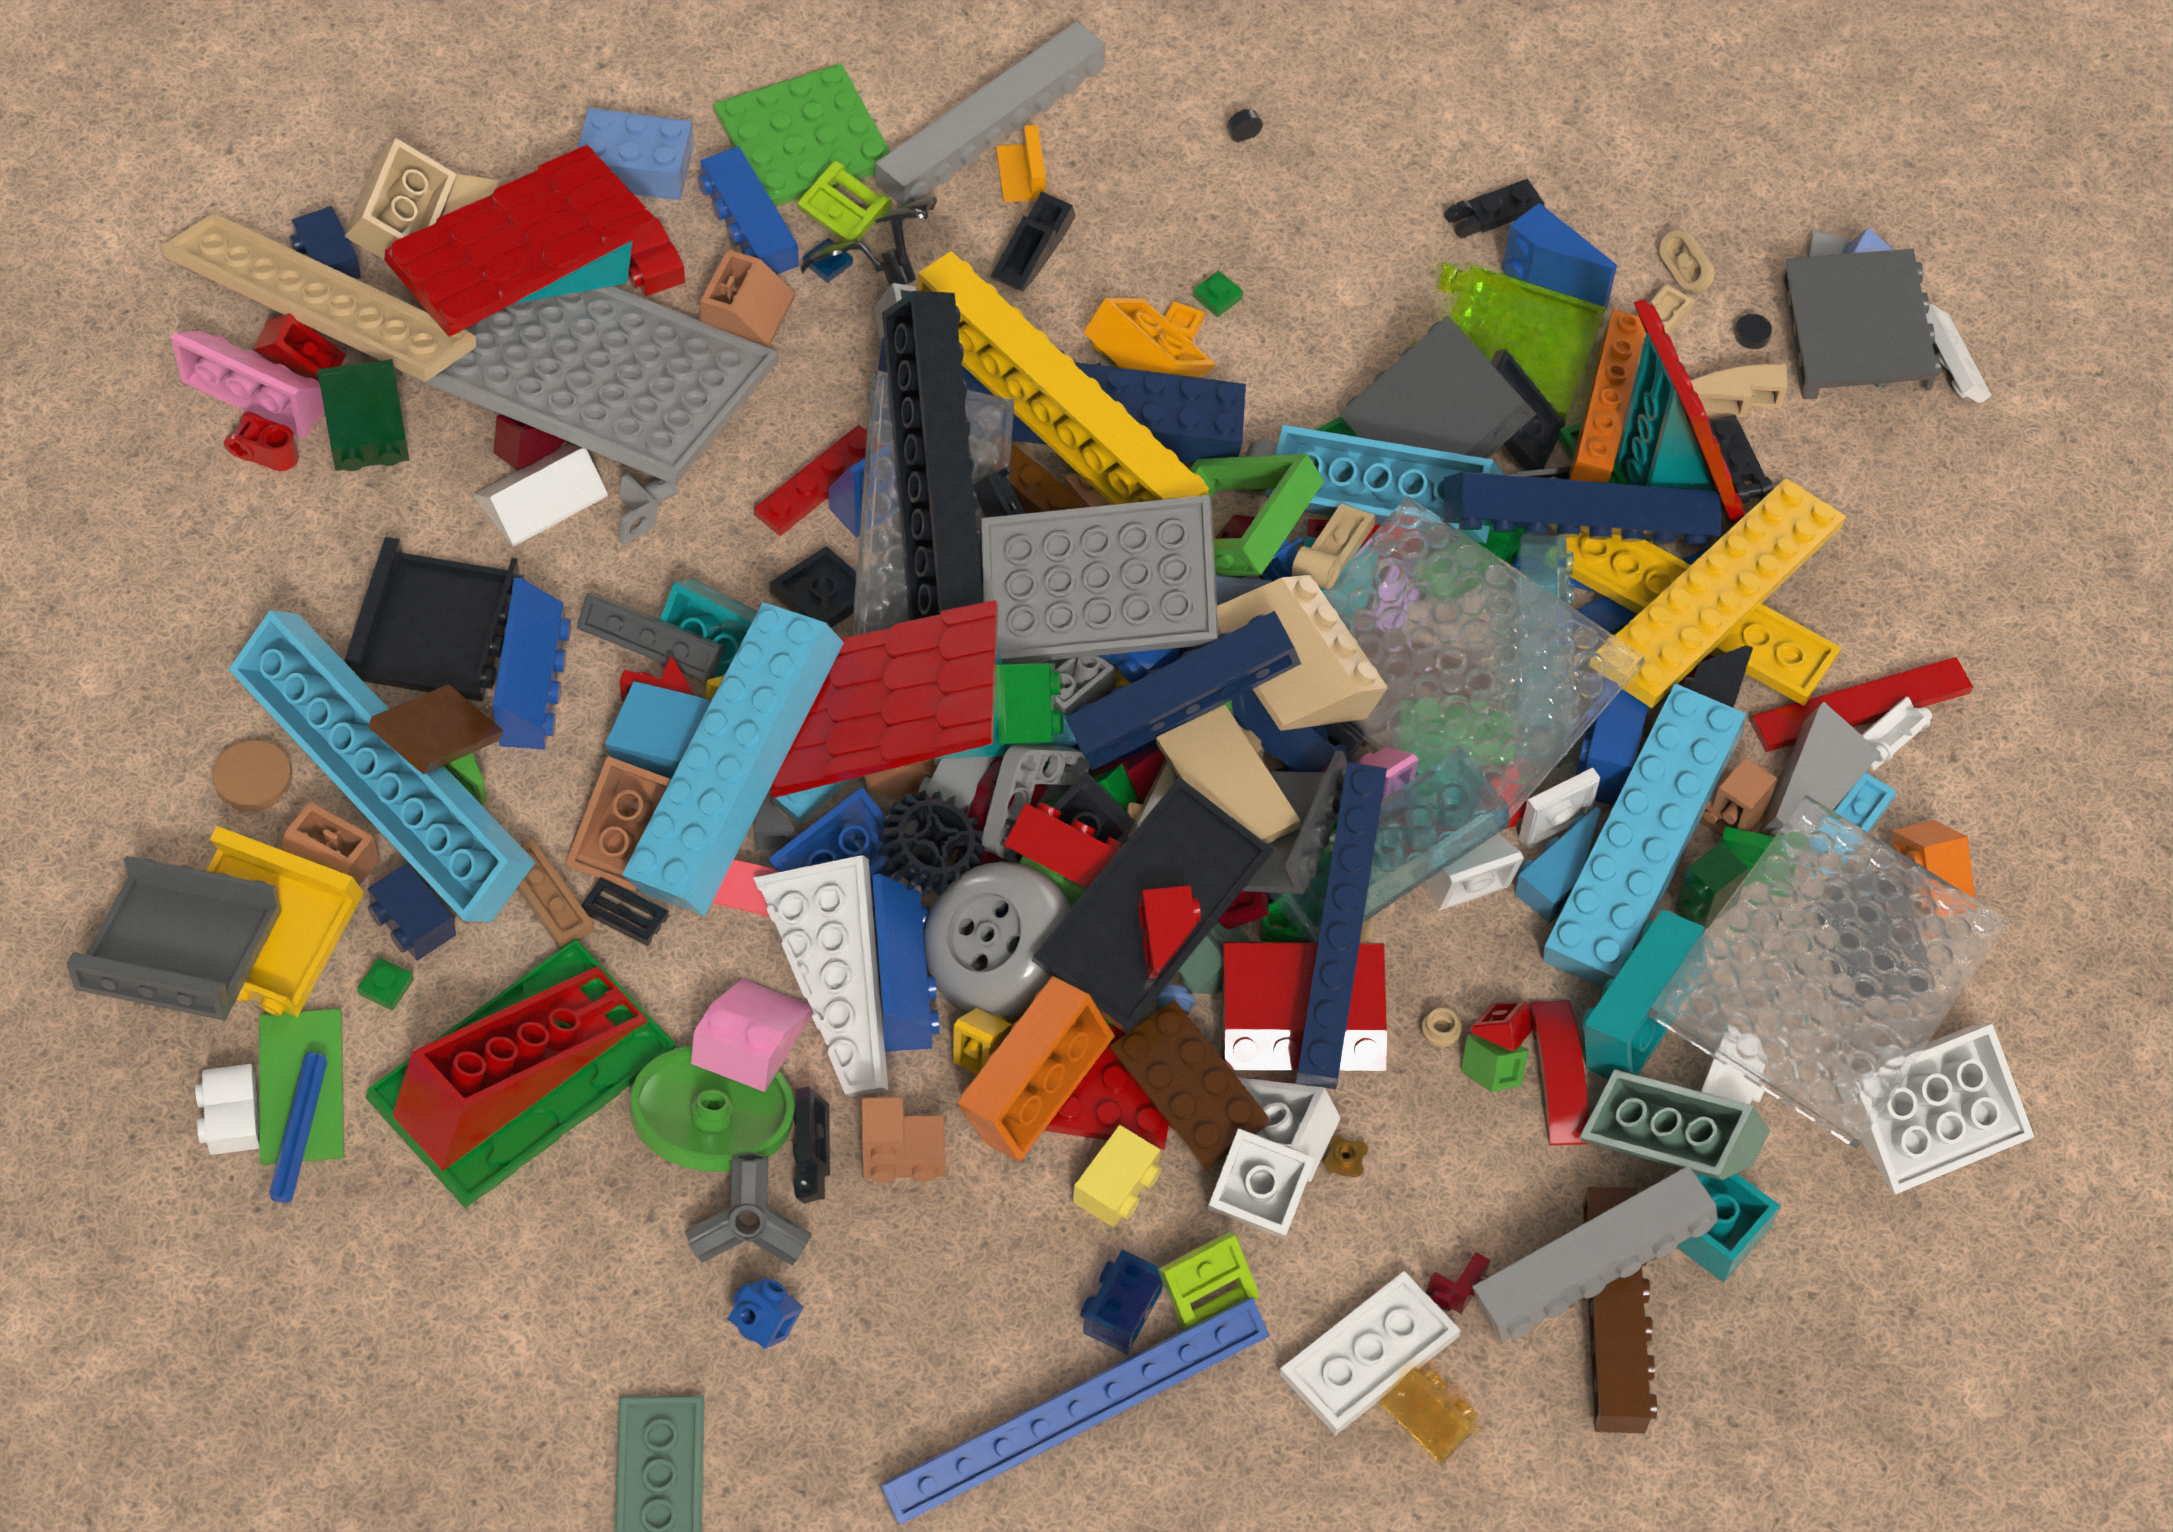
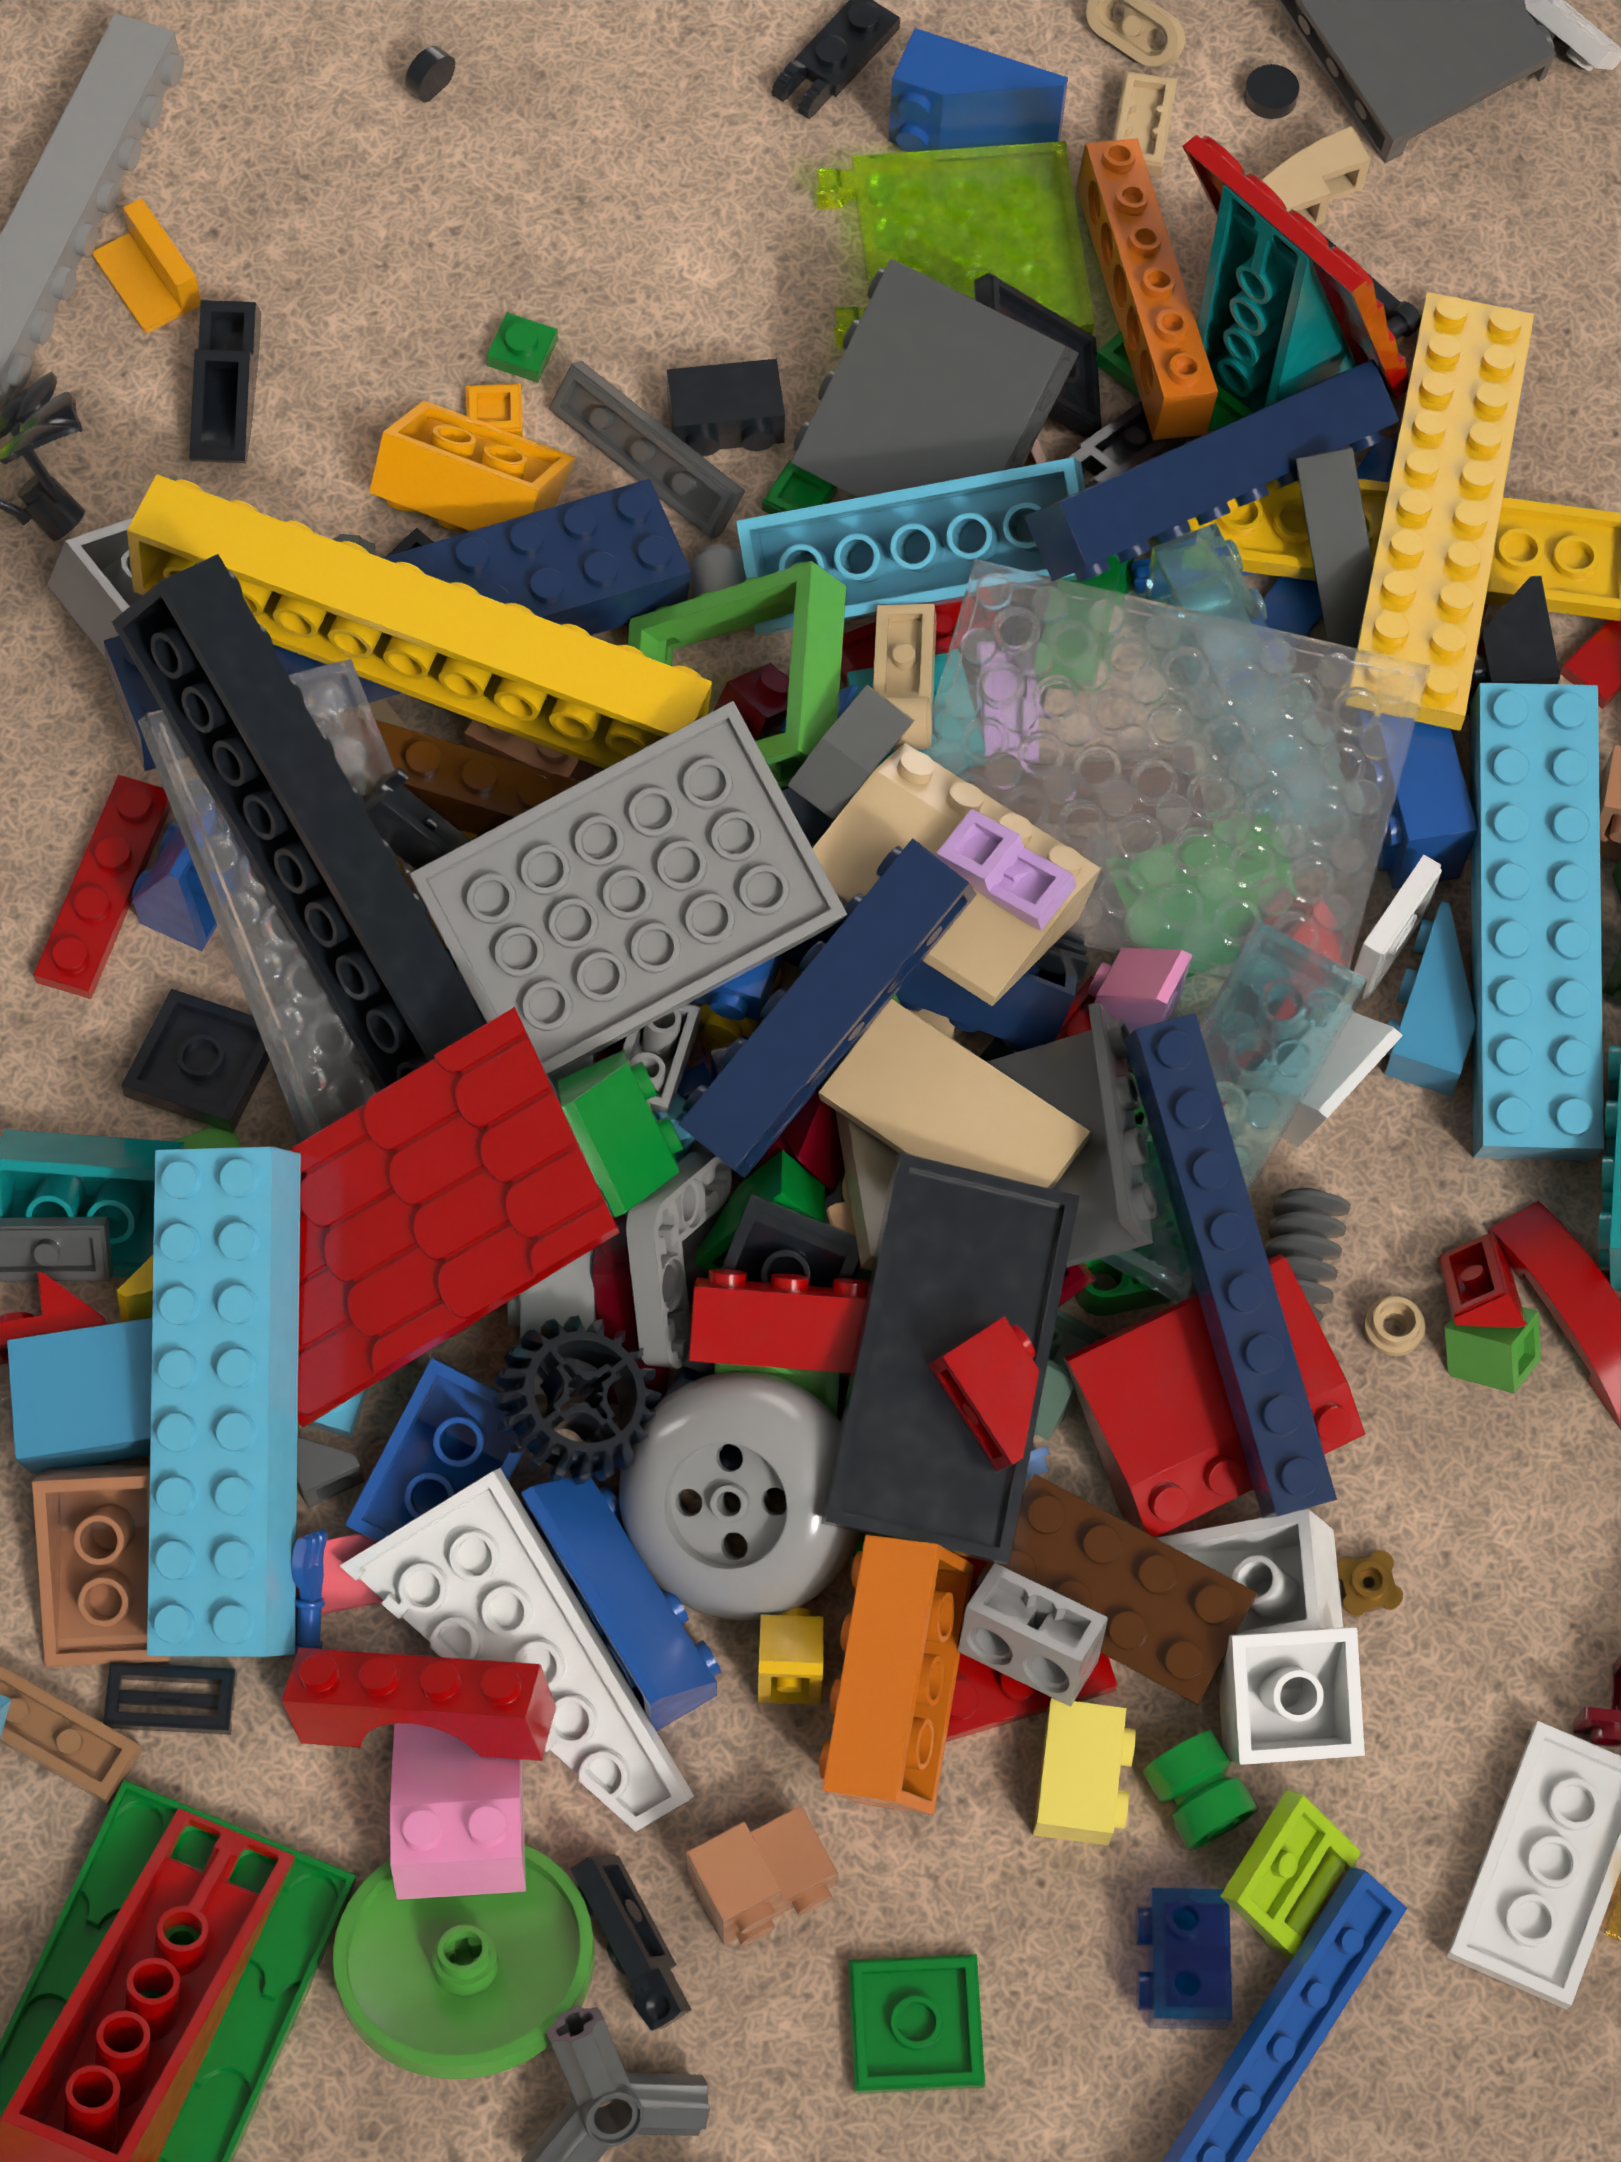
camera: 25 degrees left, 10 degrees up
(734, 876) = (308, 1576): none -> blue piece
(795, 979) = (485, 1703): none -> red arch
(949, 1267) = (916, 2024): none -> green tile
(1125, 1082) = (1032, 1634): none -> light grey brick
(1181, 1215) = (1196, 1783): none -> green wheel
(1259, 374) = (646, 449): none -> dark grey tile
(1274, 560) = (850, 752): none -> dark grey slope
(1318, 371) = (727, 406): none -> black brick
(1325, 659) = (1005, 871): none -> lavender slope
(1410, 958) = (1301, 1236): none -> dark grey piece
(1642, 571) = (1336, 540): none -> dark grey tile

